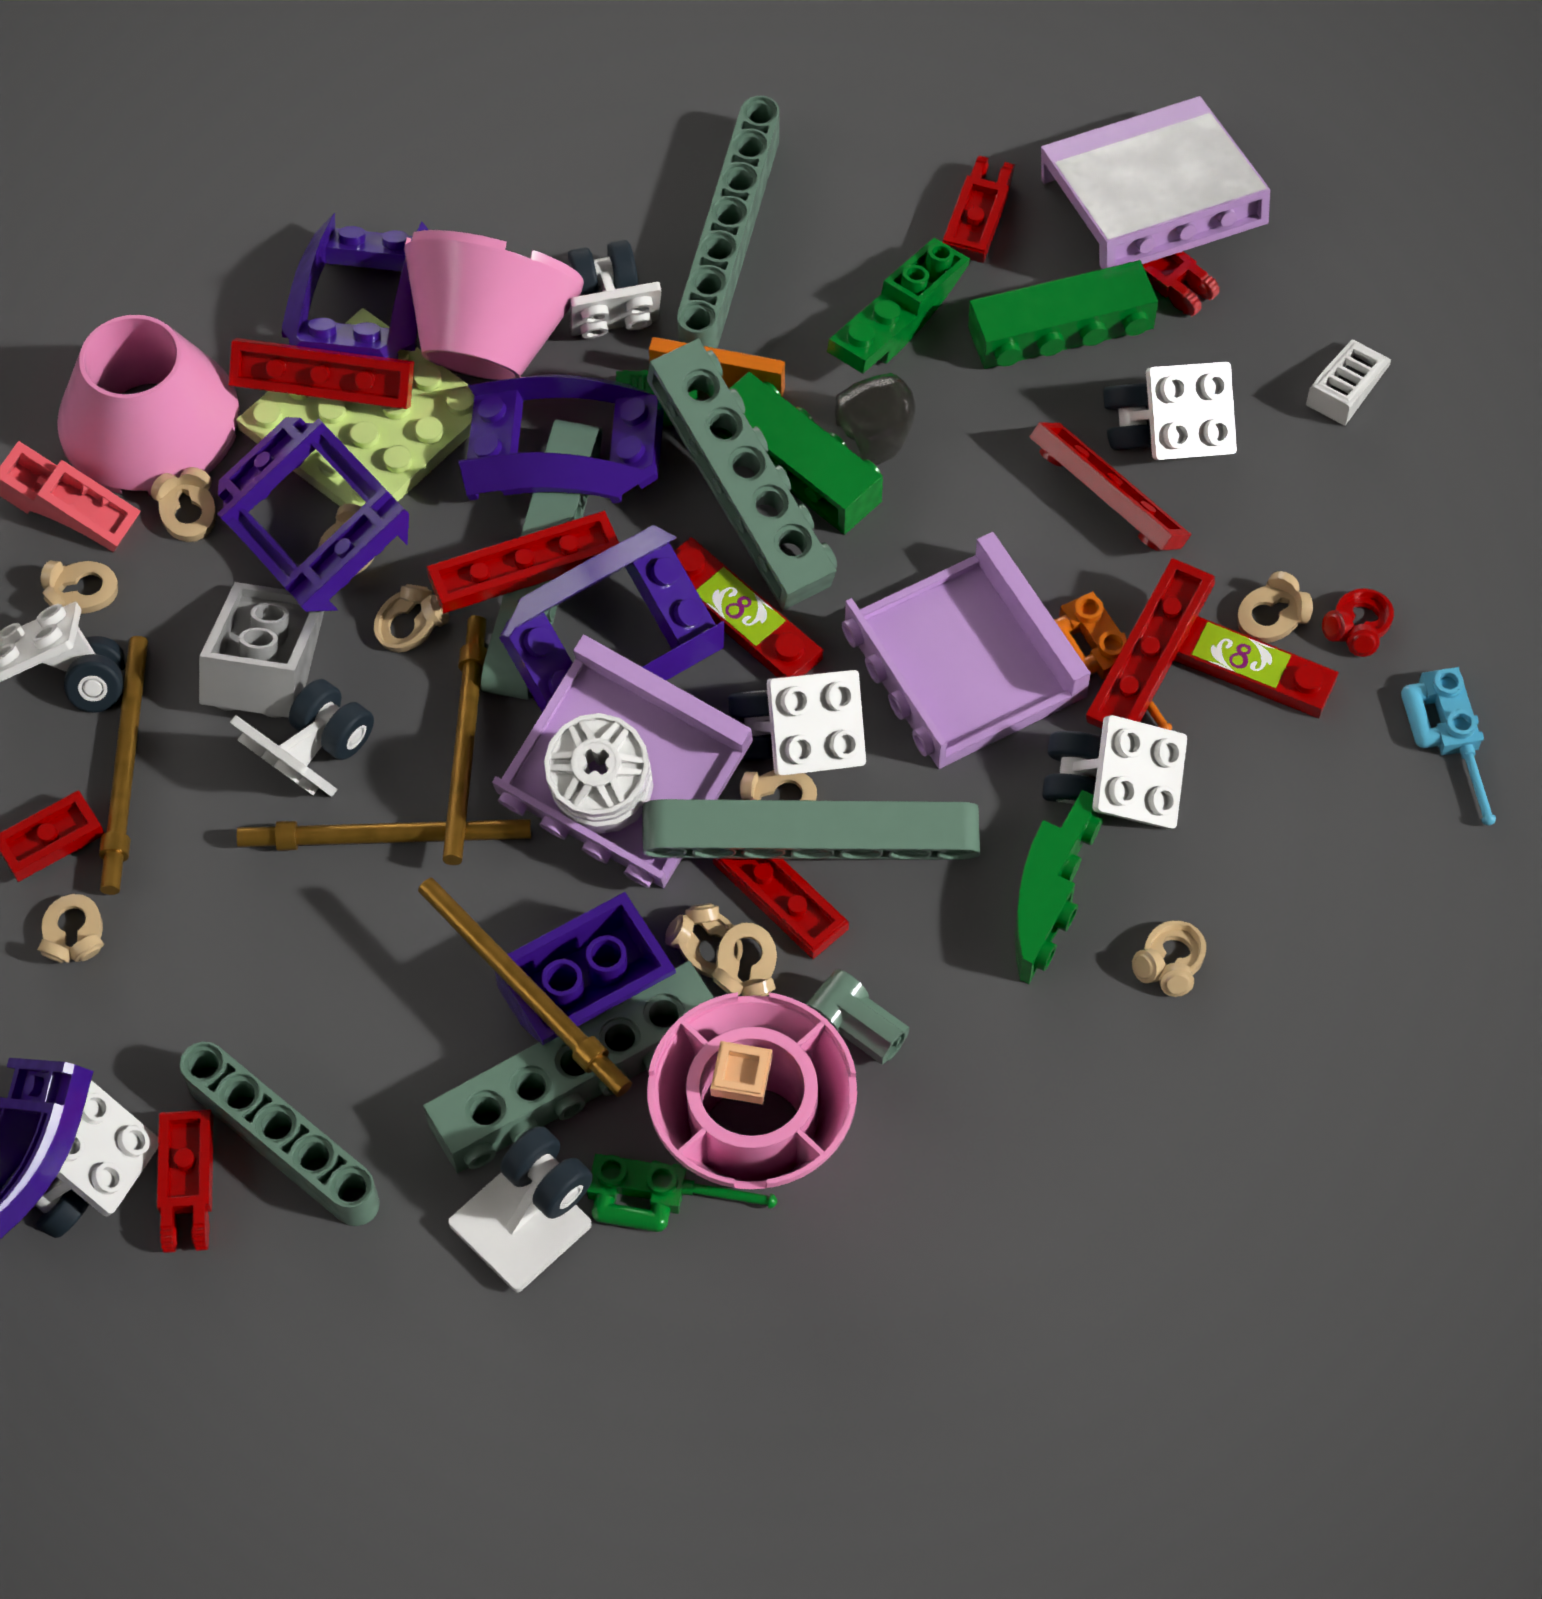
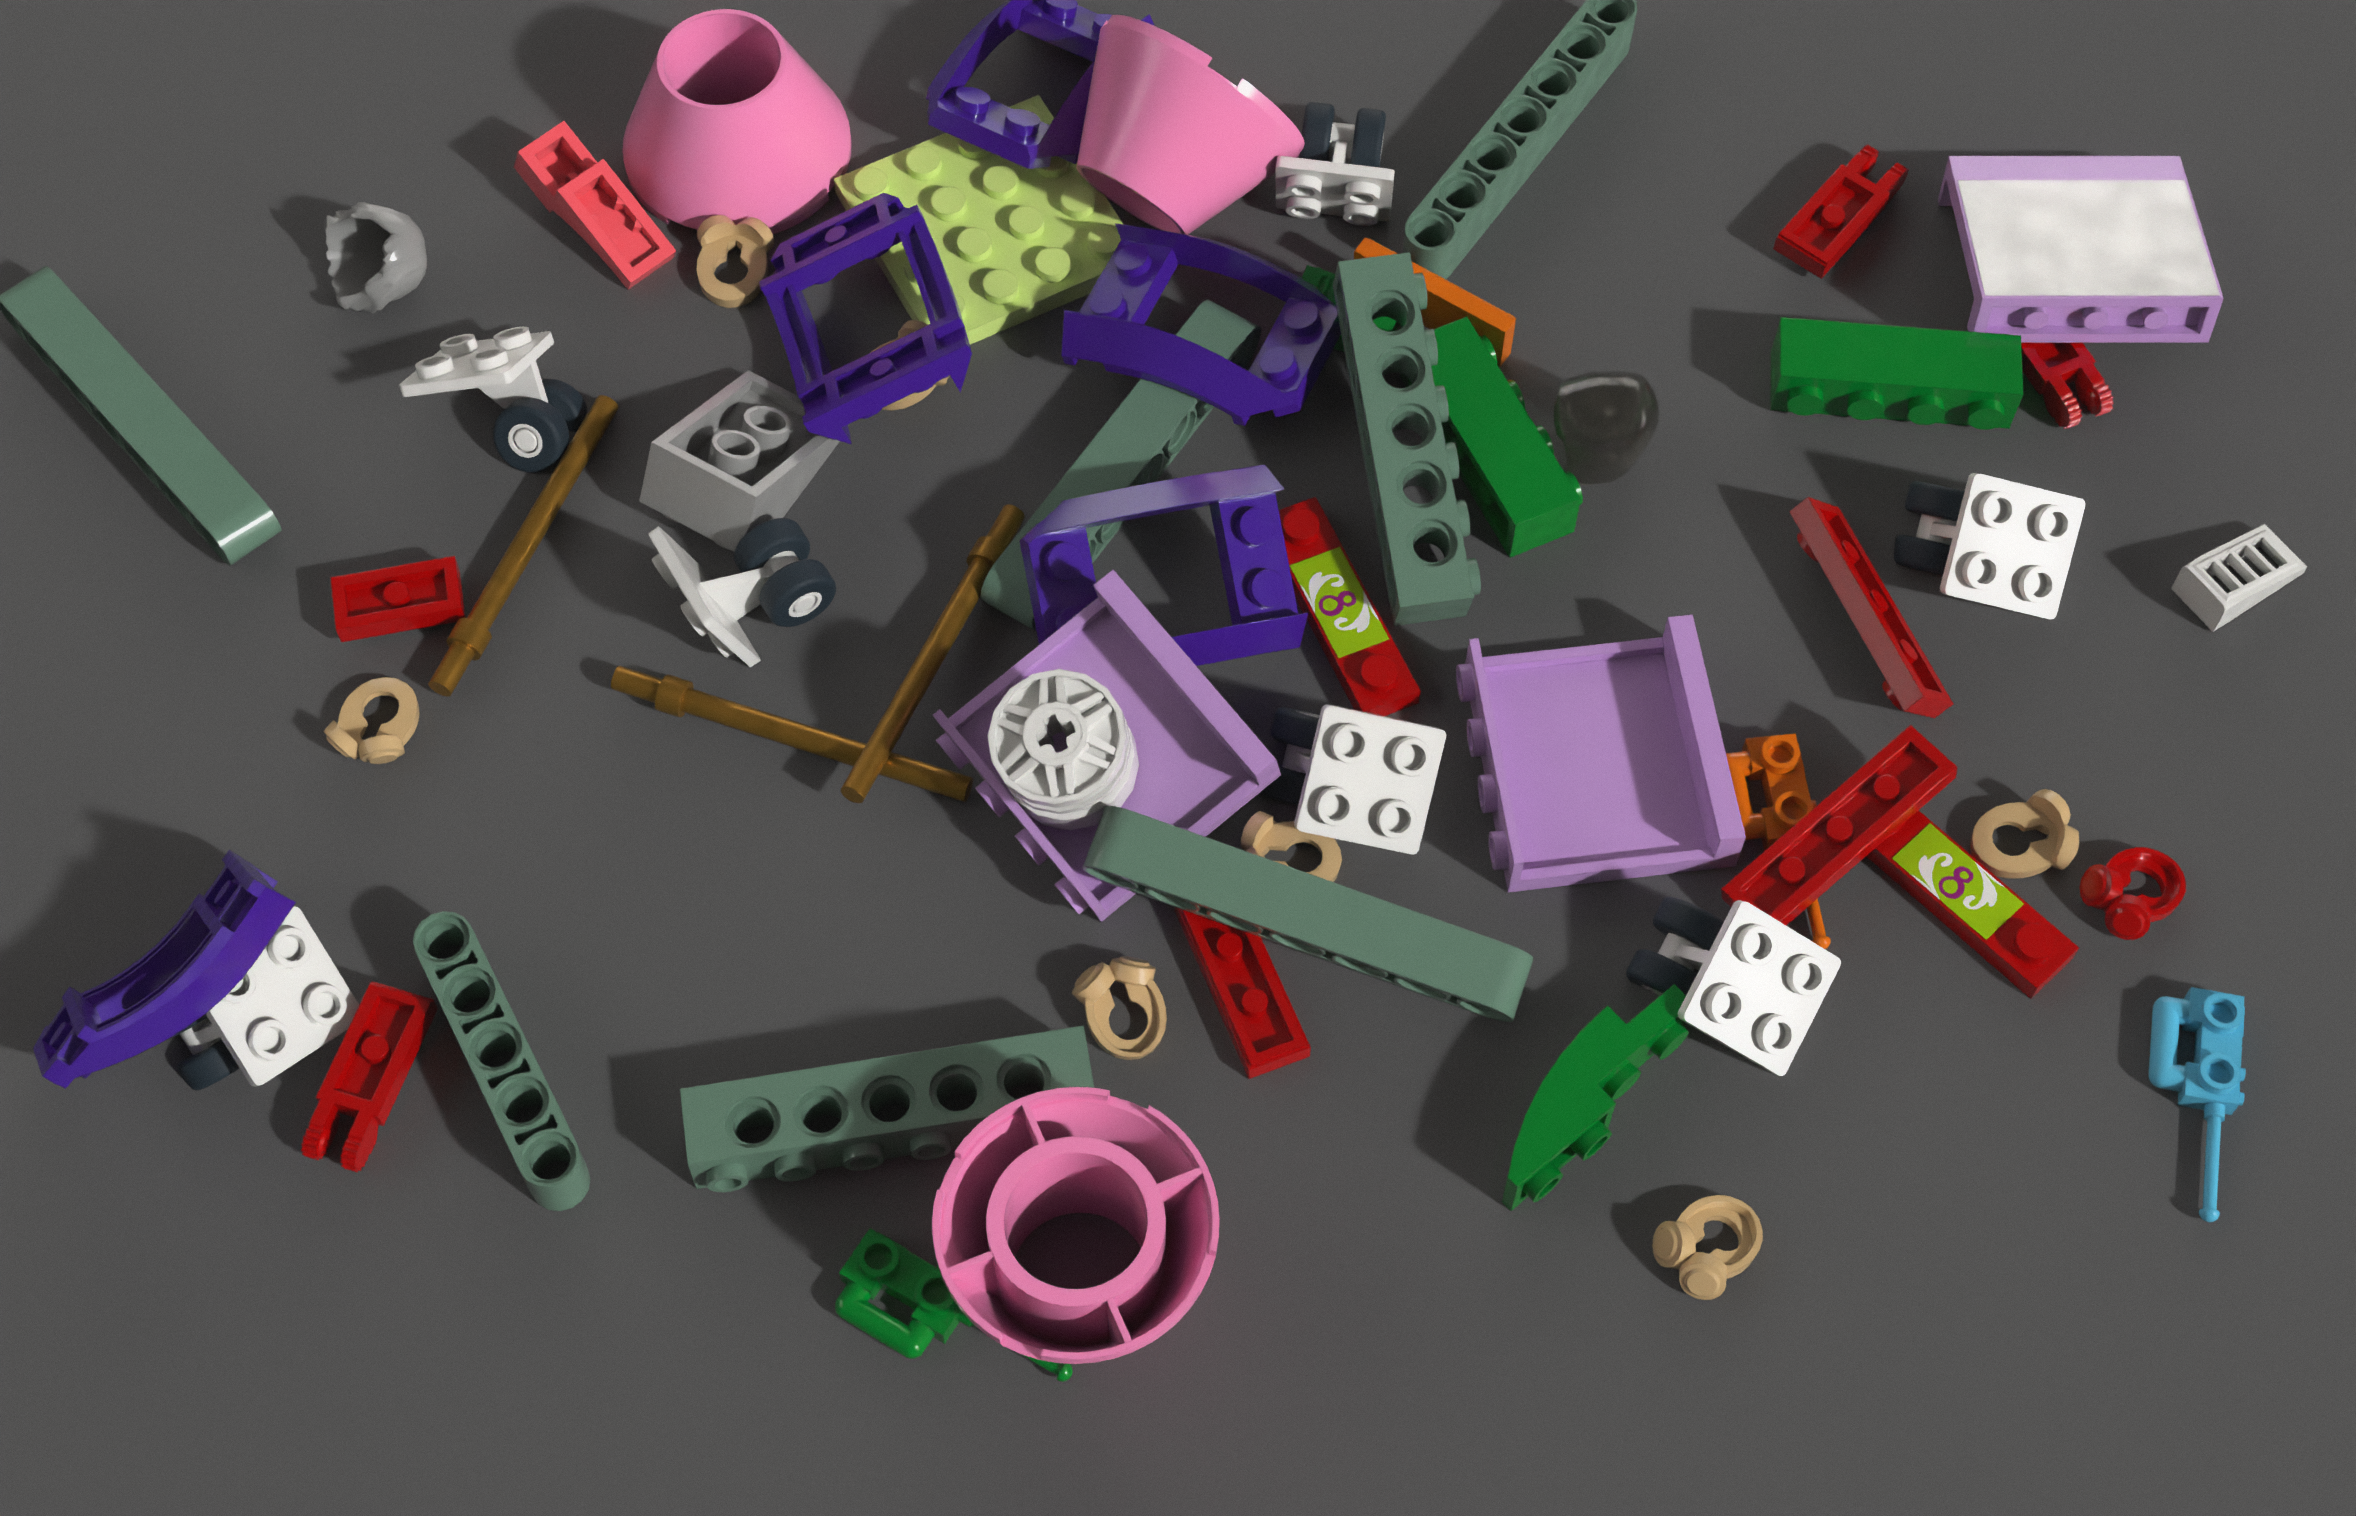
camera: 20 degrees right, 0 degrees up
(57, 576) = (546, 296): tan piece -> none
(321, 373) = (950, 154): red plate -> none
(403, 602) = (964, 485): tan piece -> none
(519, 562) = (1085, 456): red plate -> none
(526, 1210) = (751, 1271): white plate -> none
(586, 1050) = (900, 1095): pearl gold bar -> none
(589, 965) = (946, 988): dark purple slope -> none
(727, 966) = (1169, 1081): tan piece -> none
(741, 1072) = (1068, 1197): light nougat tile -> none
(857, 1017) = (1260, 1160): sand green piece -> none
(901, 309) = (1694, 302): green slope -> none

